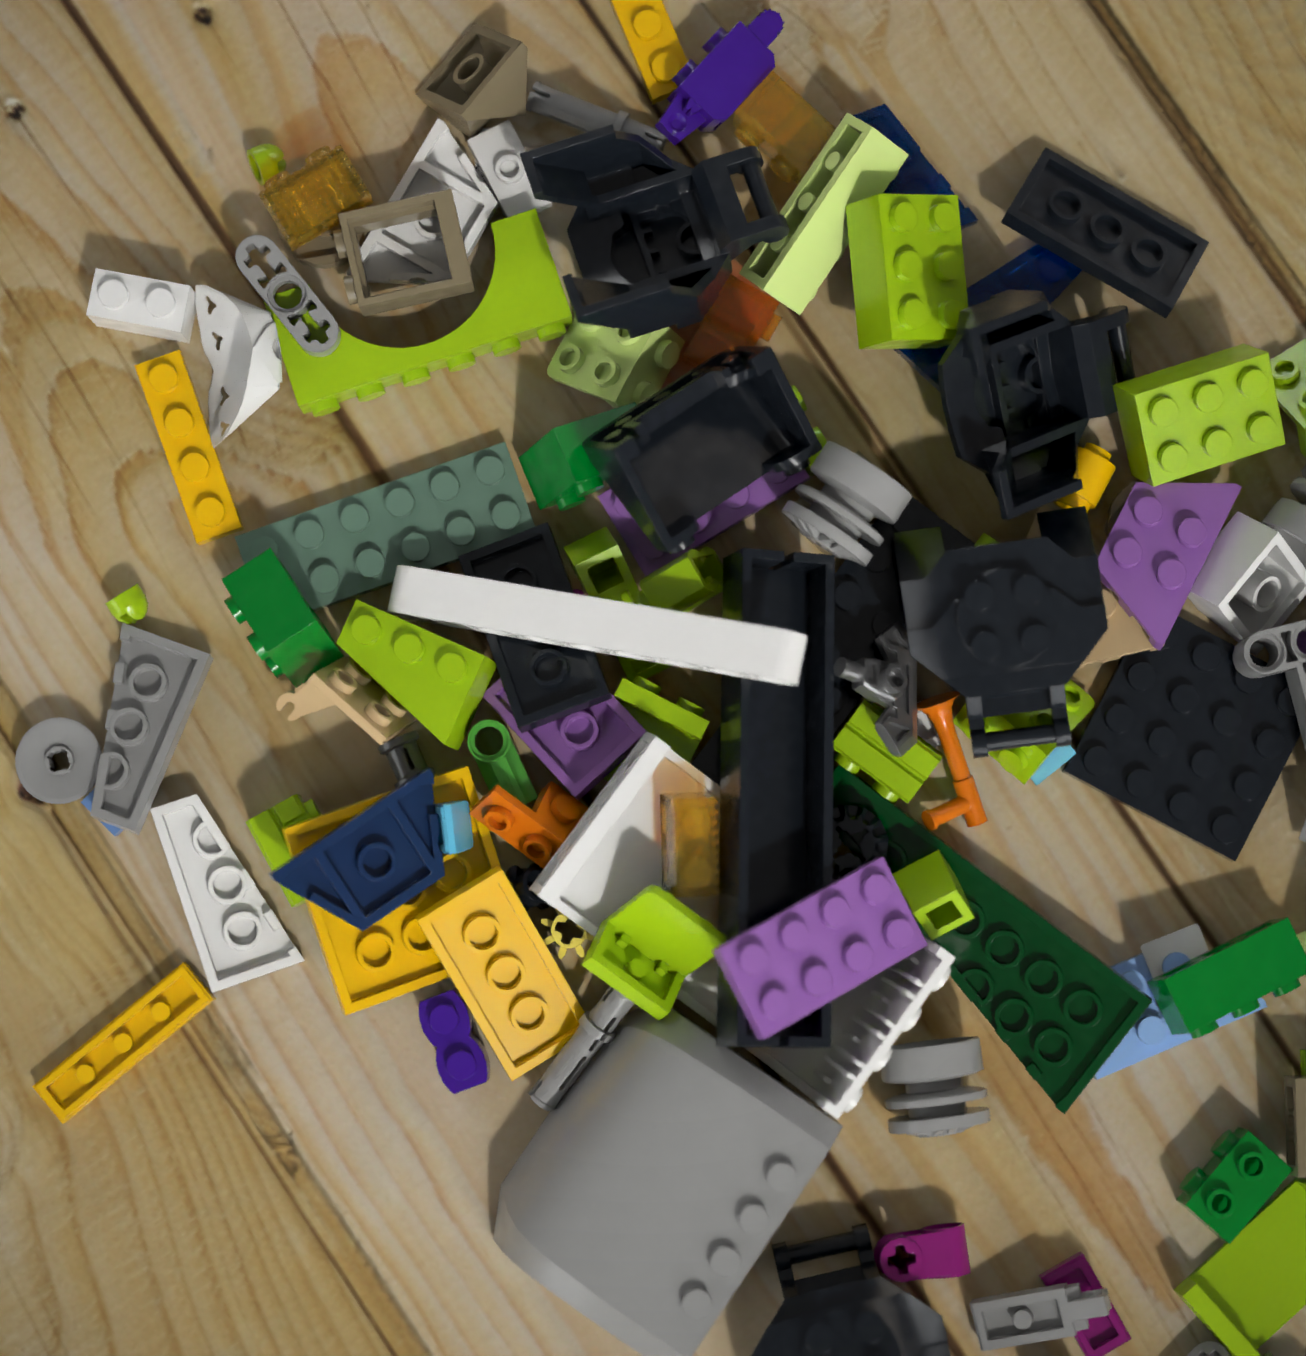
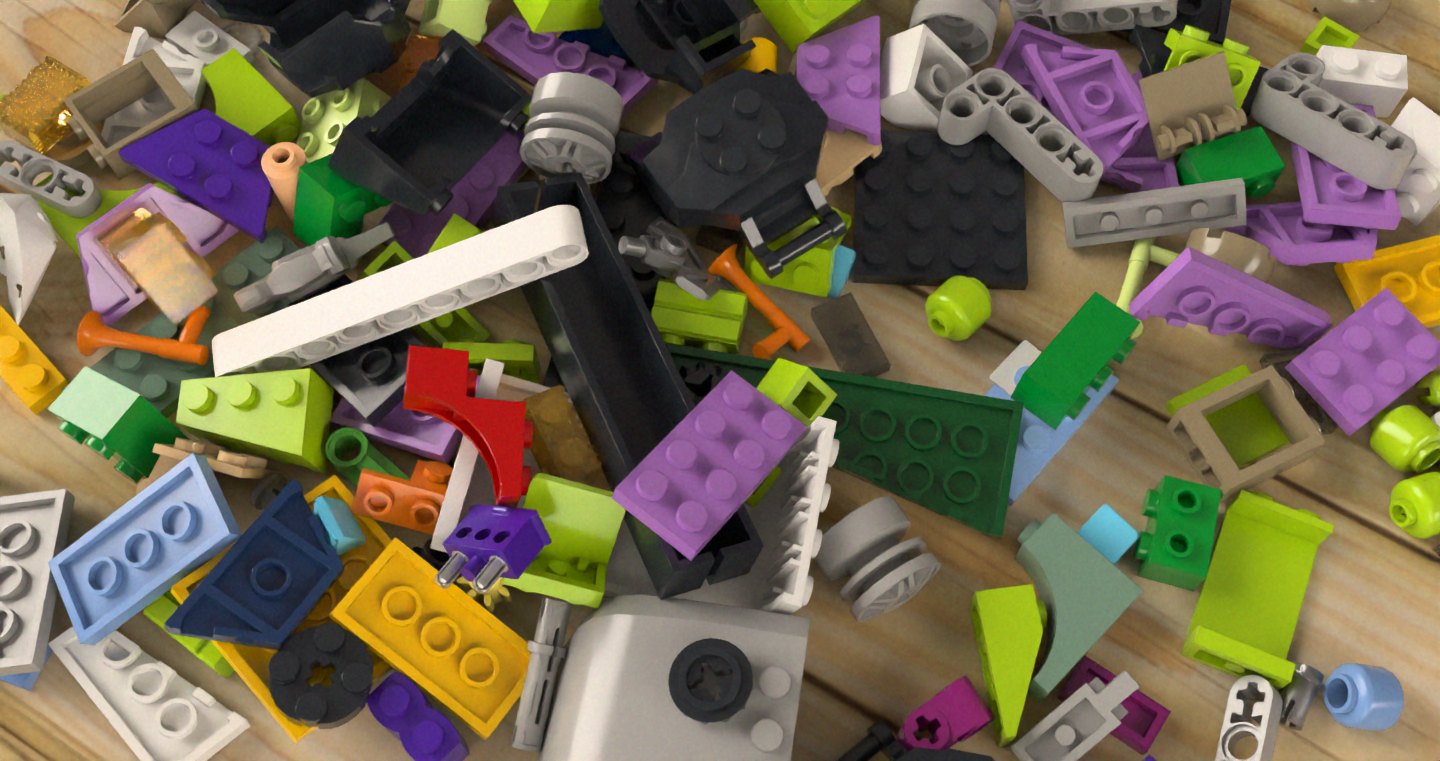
camera: 20 degrees left, 20 degrees down
(269, 770) = (144, 549): none -> medium blue plate
(366, 418) = (107, 284): none -> wing
(367, 557) = (95, 334): none -> orange piece
(376, 460) = (154, 259): none -> clear yellow brick
(412, 986) = (315, 705): none -> black plate
(464, 360) = (211, 167): none -> dark purple wing
(523, 528) = (310, 269): none -> light grey animal
(535, 397) = (281, 168): none -> light nougat brick
(587, 928) = (492, 545): none -> dark purple piece
(636, 826) = (446, 388): none -> red arch
(708, 1169) = (688, 673): none -> black gear
(886, 396) = (543, 54): none -> medium lavender wing
(1016, 1216) = (1008, 637): none -> lime slope
(1025, 840) = (850, 337): none -> clear smoke plate
(1106, 1203) = (1080, 595): none -> sand green arch
(1148, 860) = (958, 306): none -> lime head
(1160, 1155) = (1109, 533): none -> medium azure slope

